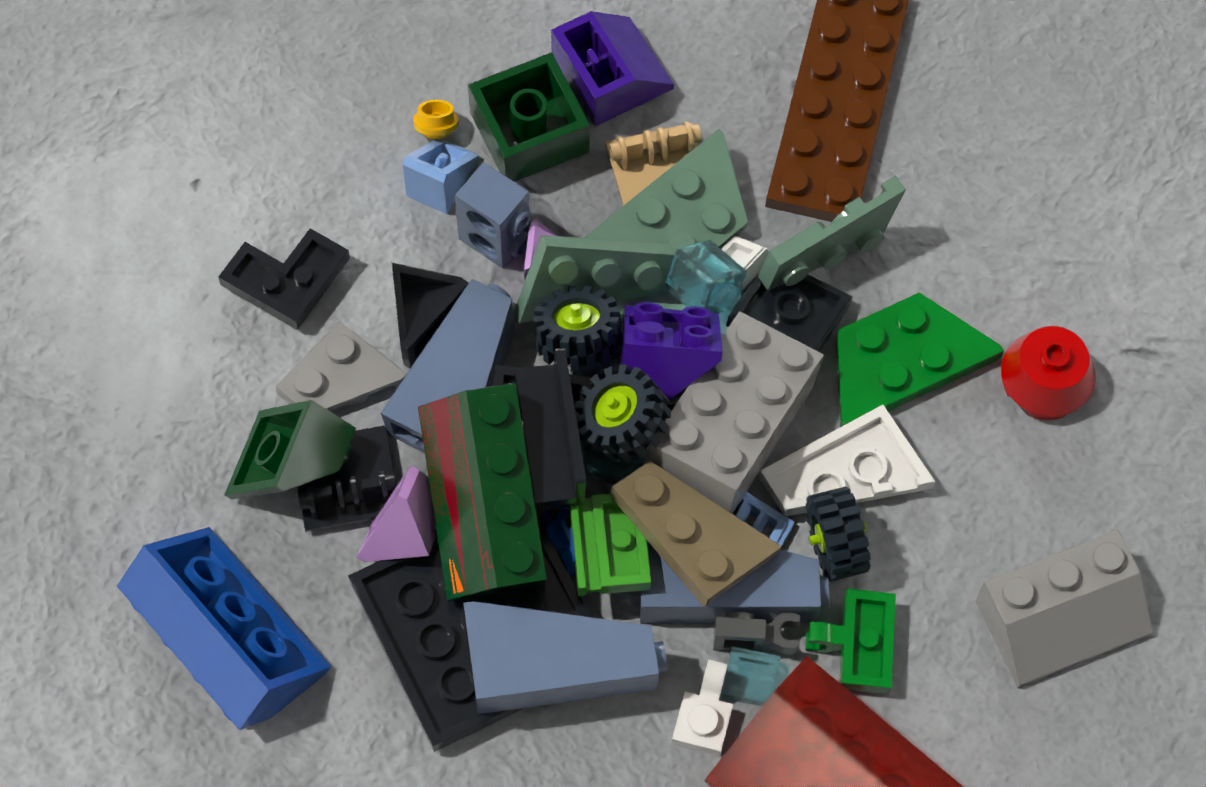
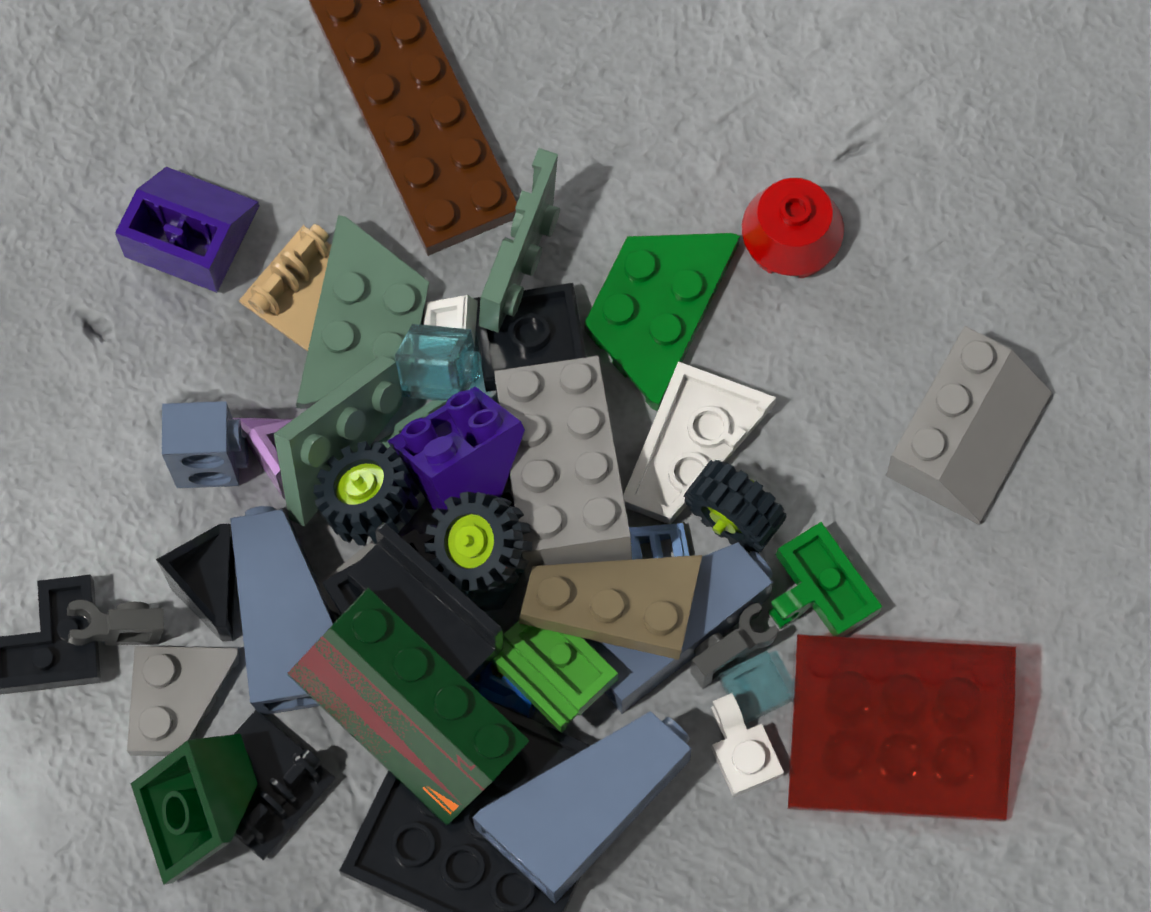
camera: 35 degrees left, 5 degrees up
(344, 301) = (127, 625): none -> dark grey plate
(404, 524) = (351, 788): lavender slope -> none
(435, 119) = (67, 392): yellow plate -> none
(437, 173) = (111, 440): light blue slope -> none
(529, 118) = (156, 329): dark green brick -> none

